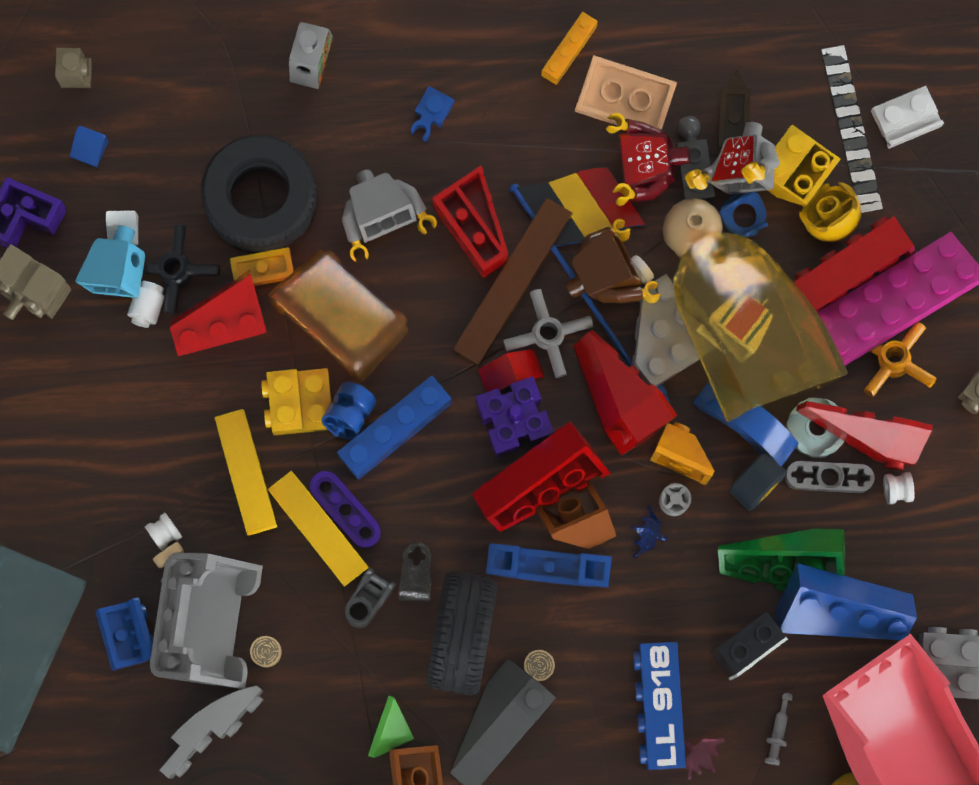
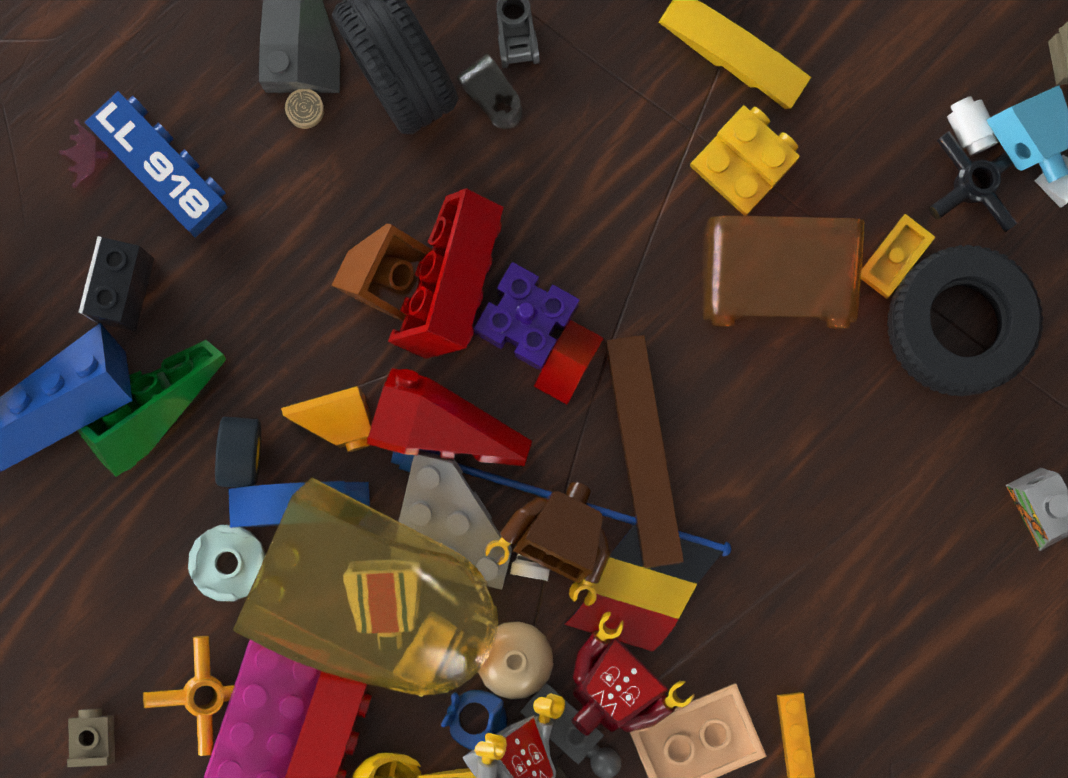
camera: 145 degrees right, 5 degrees up
(220, 319) = (889, 167): red wedge -> none
(318, 528) = (620, 54): yellow slope -> none
(341, 496) = (595, 86): dark purple plate -> none
(350, 408) = (689, 186): blue wheel -> none
(381, 207) = (837, 409): light grey torso -> none
(394, 428) = (632, 208): blue brick -> none
(433, 110) = (875, 561): blue plate -> none
(472, 221) = (733, 474): red wedge -> none
(548, 566) = (374, 205): blue slope -> none
(550, 345) = (573, 413): light grey bar -> none
(648, 533) = (305, 320): clear blue piece -> none
(678, 495) = (299, 364): light grey wheel -> none
(778, 732) = (23, 228): light grey piece -> none
(851, 485) = (158, 548): light grey beam -> none
(884, 440) = (146, 602): wedge -> none
(898, 488) = (97, 568): white wheel -> none

